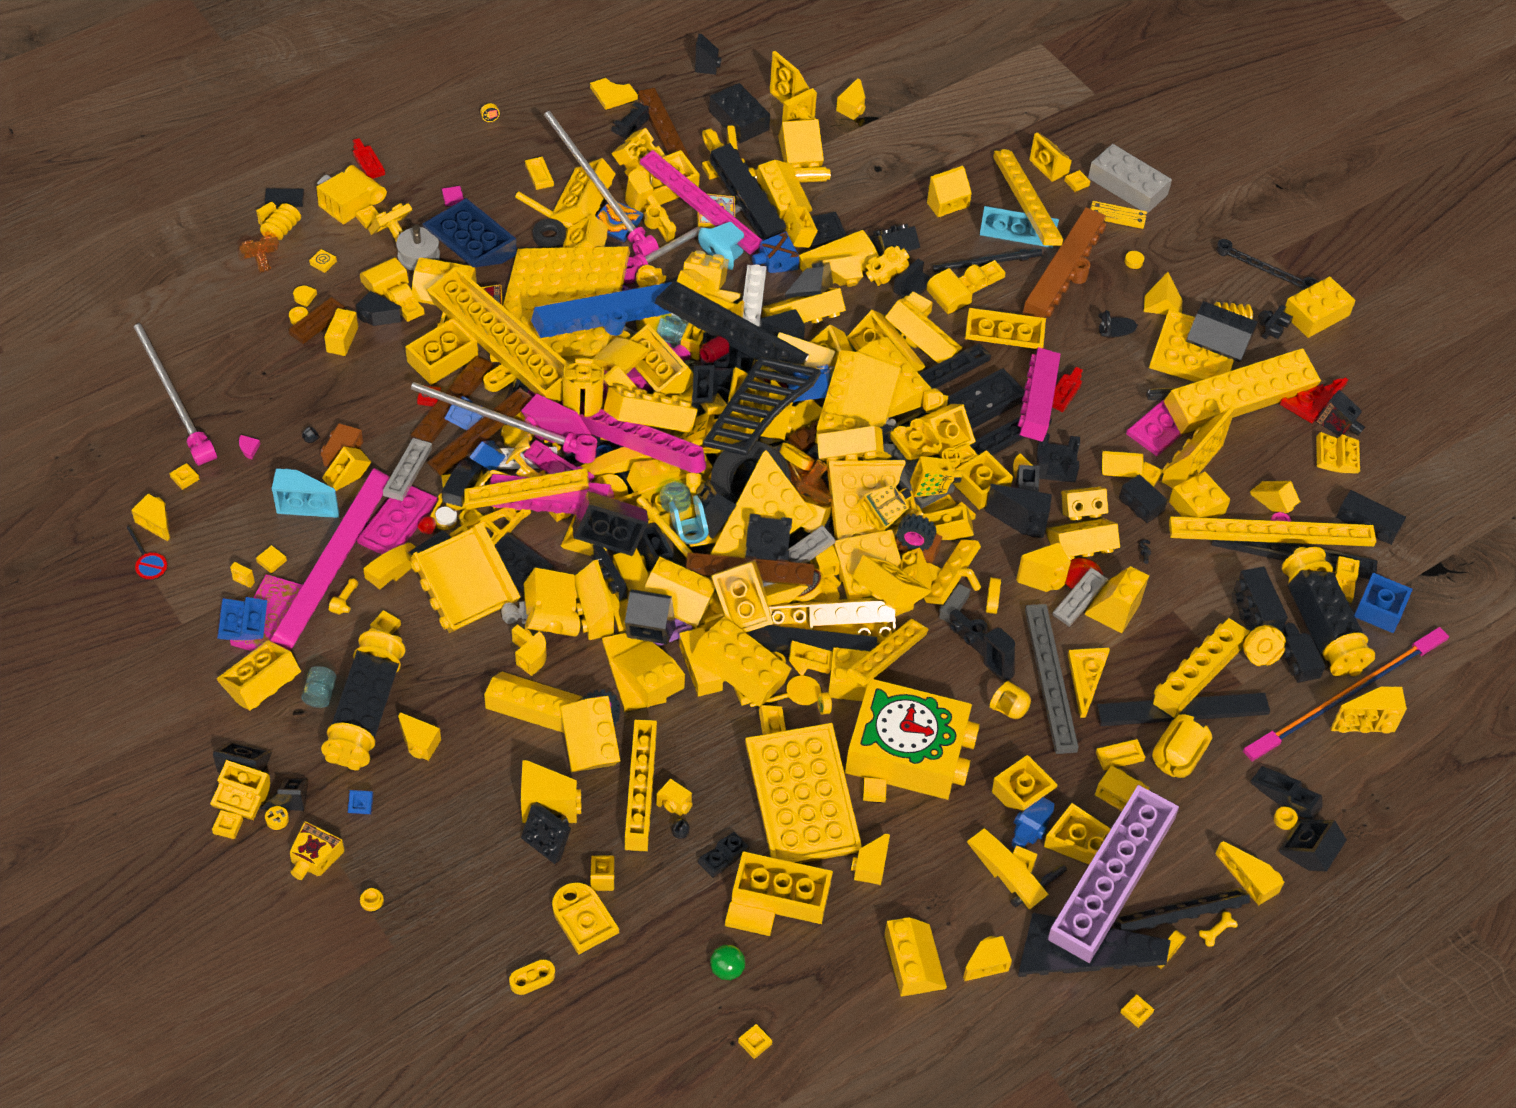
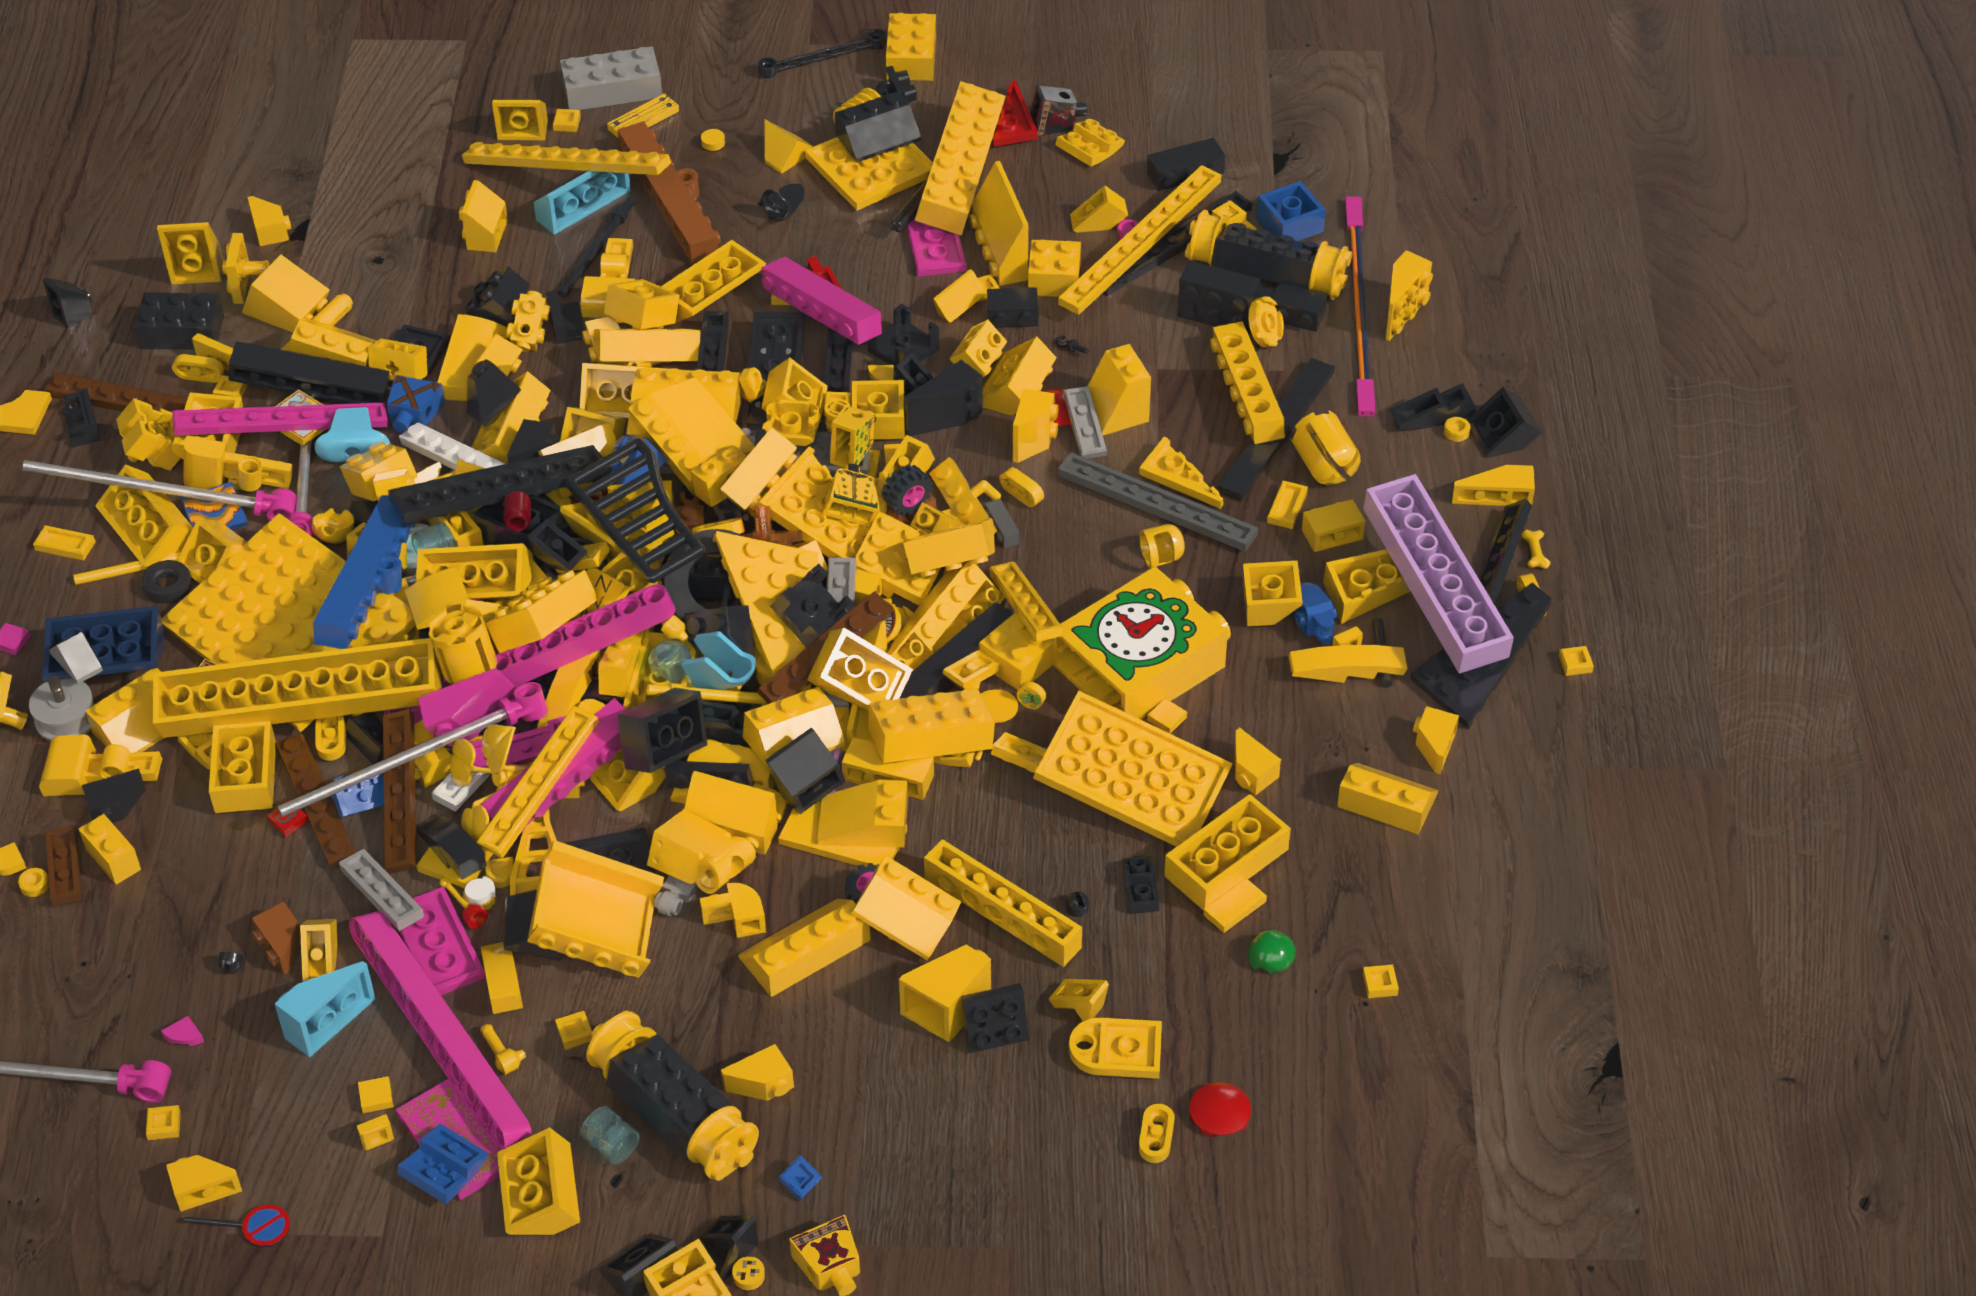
camera: 50 degrees left, 5 degrees down
(371, 899) = (936, 1234): yellow plate -> none
(444, 228) = (77, 658): none -> slope
(488, 455) = (439, 800): blue slope -> none
(579, 1003) = (1220, 1109): none -> red dish
(675, 798) = (1042, 882): yellow brick -> none
(947, 308) = (641, 304): none -> yellow brick
(994, 646) = (1100, 520): black plate -> none

